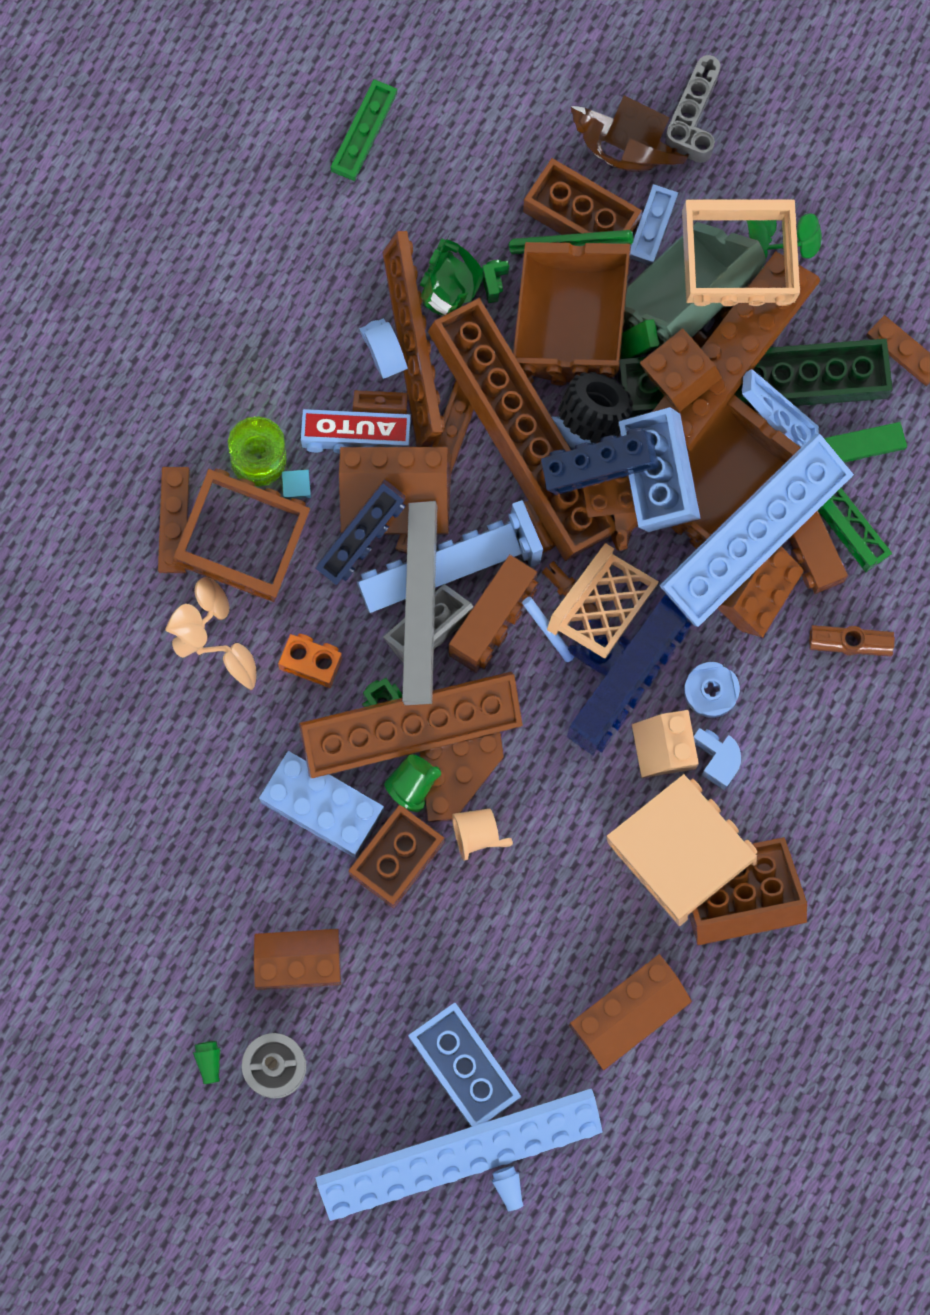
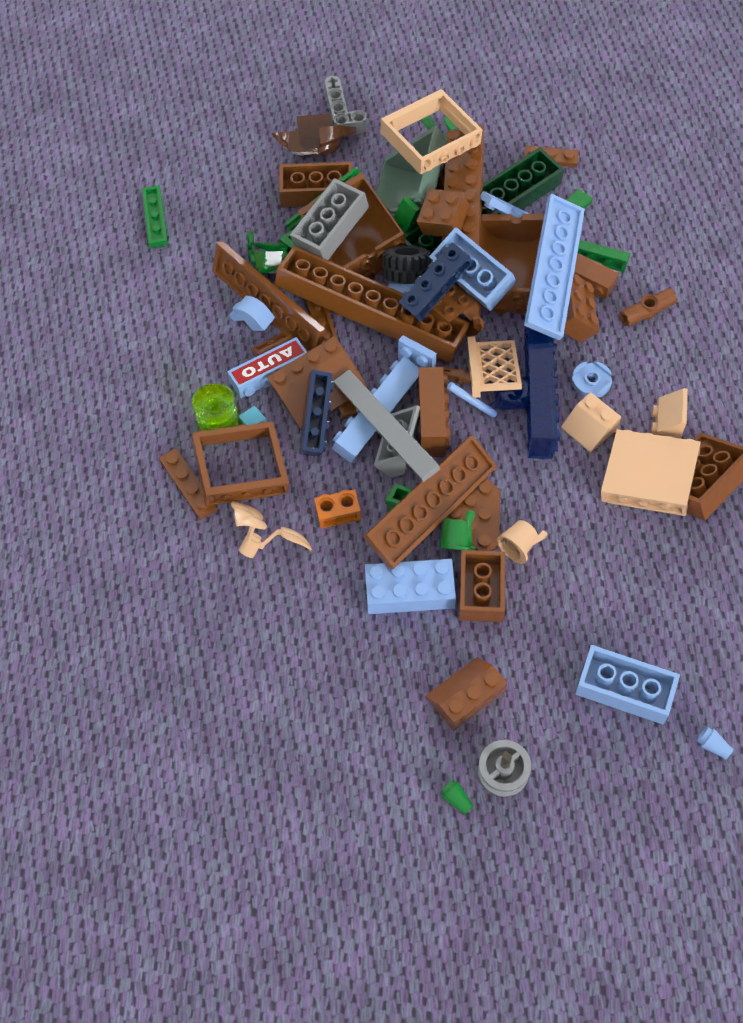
camera: 30 degrees left, 15 degrees down
(459, 1154) = (667, 744): light blue plate -> none
(543, 290) = (330, 219): none -> light grey brick
(630, 1012) = (698, 585): dark orange slope -> none
(653, 224) = (360, 161): light blue plate -> none
(725, 758) = (632, 410): light blue brick -> none
(756, 799) = (670, 414): none -> light nougat slope

